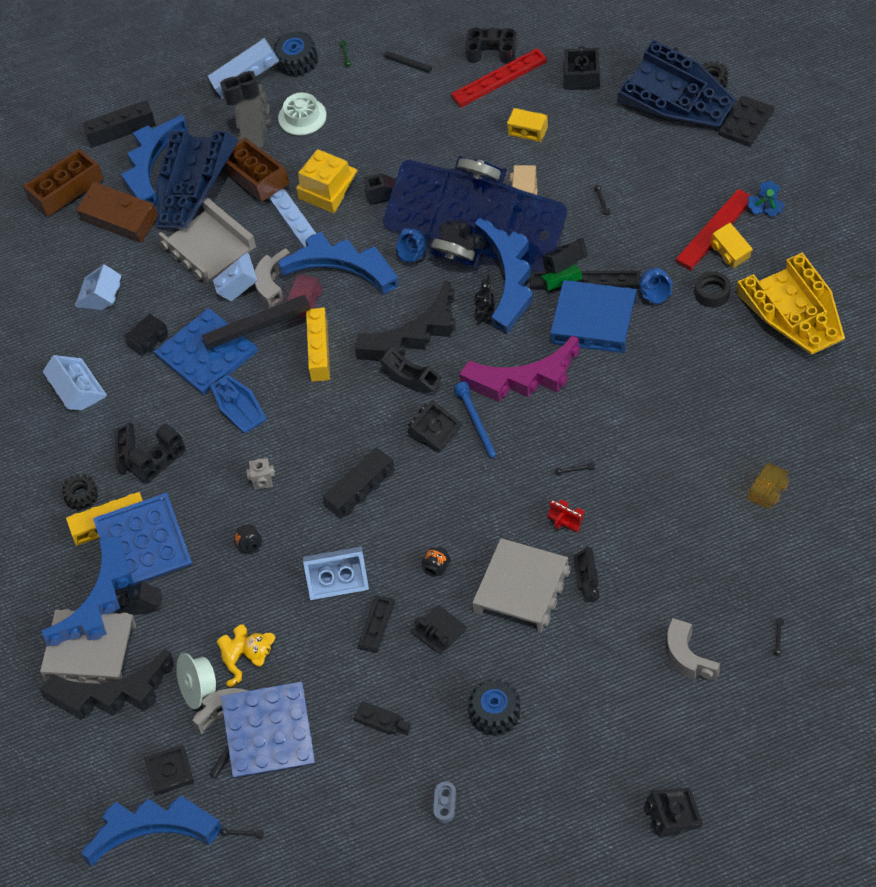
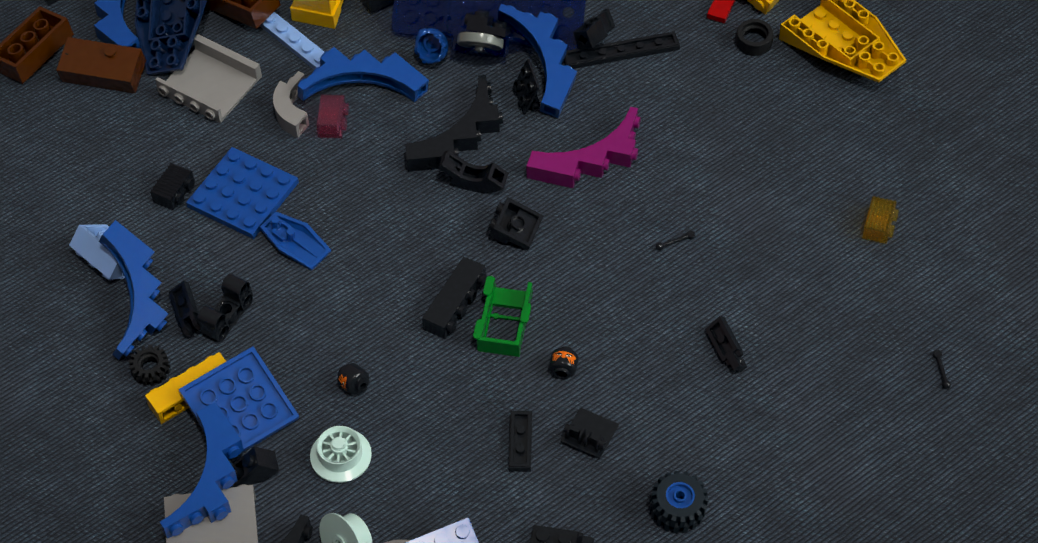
camera: 20 degrees left, 0 degrees up
(88, 394) = (134, 259): none -> blue arch
(99, 289) = (104, 148): light blue slope -> none
(217, 603) = (340, 454): none -> light aqua piece
(235, 278) = (254, 110): light blue slope -> none
(254, 647) = (398, 492): yellow animal -> none
(256, 322) = (291, 151): black tile -> none
(260, 473) = (345, 307): light grey brick -> none
(318, 344) = (364, 163): yellow brick -> none
(335, 573) = (461, 396): light blue slope -> none
(401, 491) = (502, 298): none -> green piece
(463, 391) = (533, 184): blue piece -> none
(522, 583) = (663, 366): light grey panel -> none
(556, 280) = (600, 51): green slope -> none
(565, 516) = (683, 289): red hips -> none
(594, 315) = (644, 81): blue panel -> none
(655, 285) = (697, 42): blue hair -> none
(681, 656) = (854, 409): light grey arch -> none

